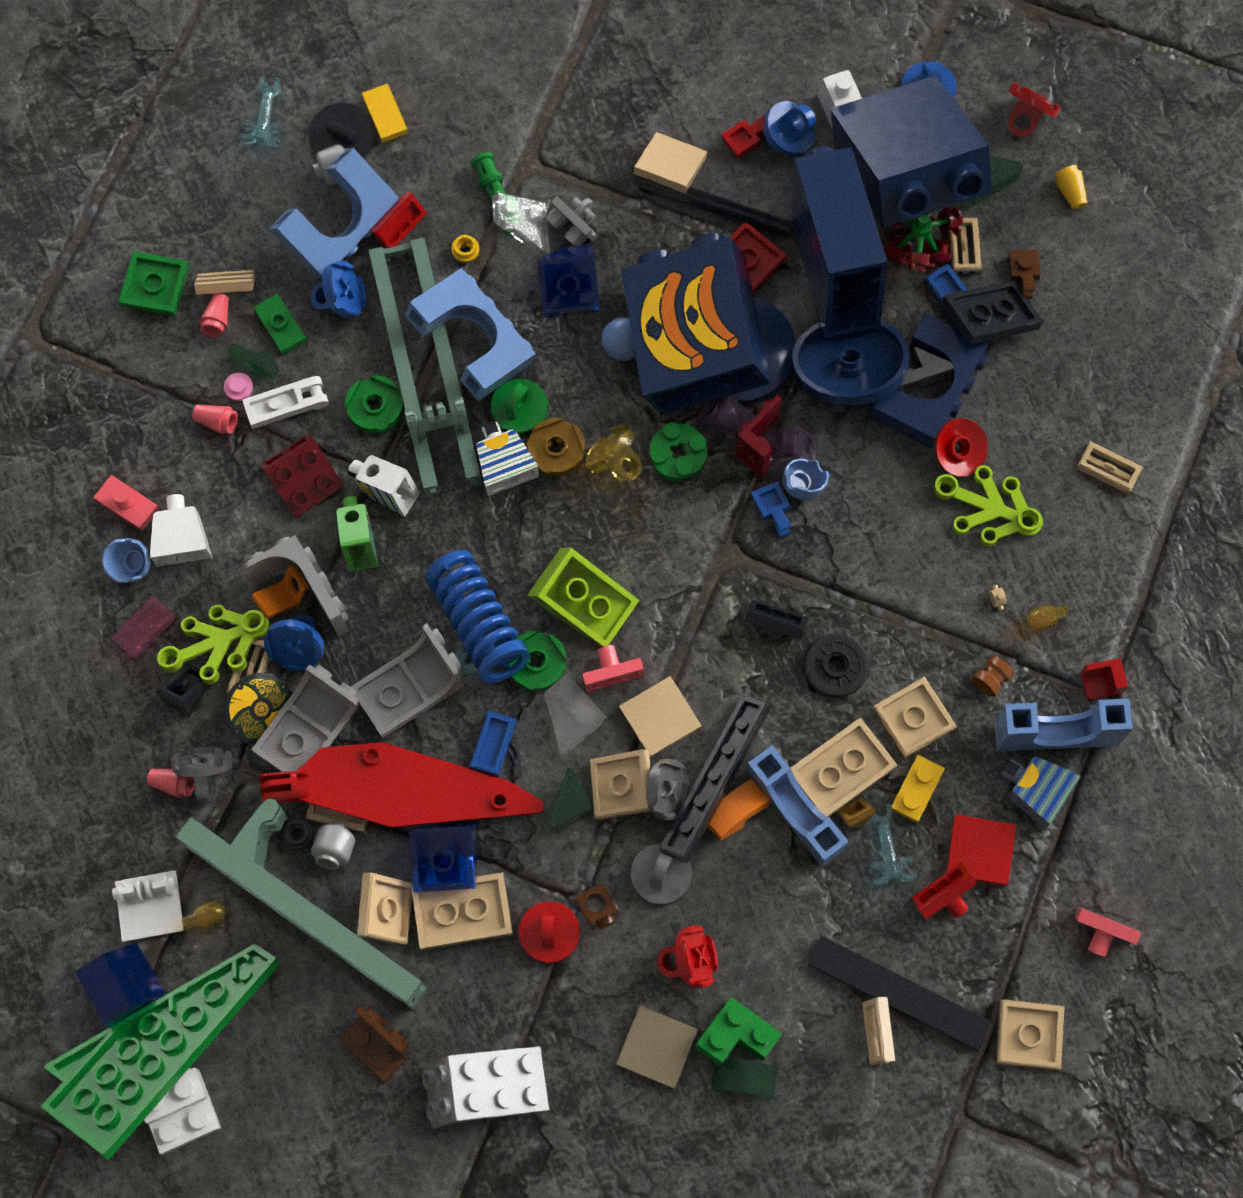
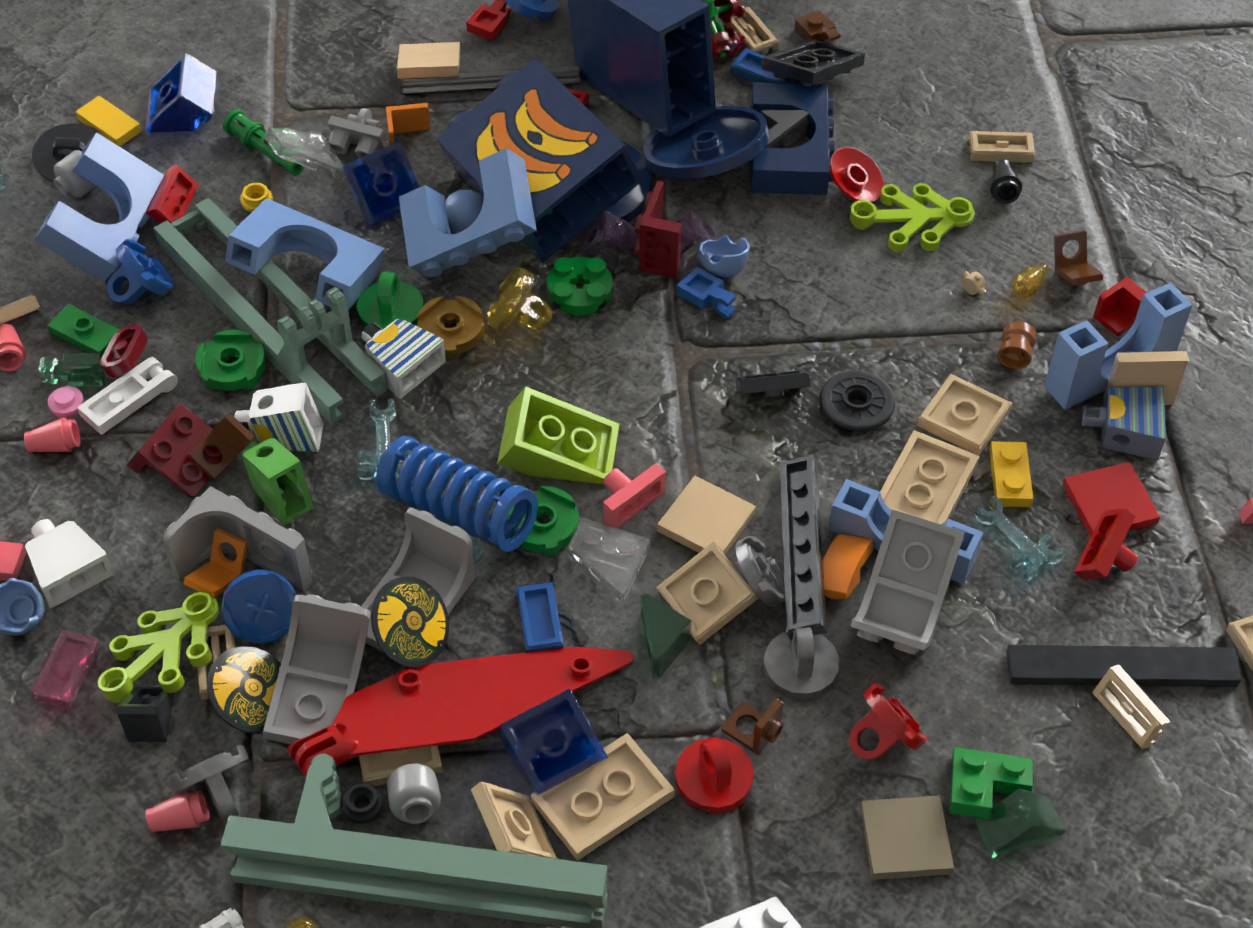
camera: 30 degrees left, 20 degrees down
(298, 360) = (124, 350): none -> dark red plate
(337, 484) = (229, 438): none -> reddish brown bracket
(390, 711) = (410, 621): none -> shield
(450, 116) = (181, 97): none -> clear blue slope
(454, 532) = (382, 420): none -> clear light blue bar
(617, 217) = (407, 119): none -> orange bracket
(632, 378) = (503, 219): none -> medium blue arch
(764, 859) = (908, 582): none -> light grey bracket
(856, 813) = (971, 514): pearl gold slope -> none
(1072, 759) = (1149, 369): none -> tan tile
(1085, 509) = (1005, 183): none -> black cone
(1091, 623) = (1075, 268): none -> reddish brown bracket

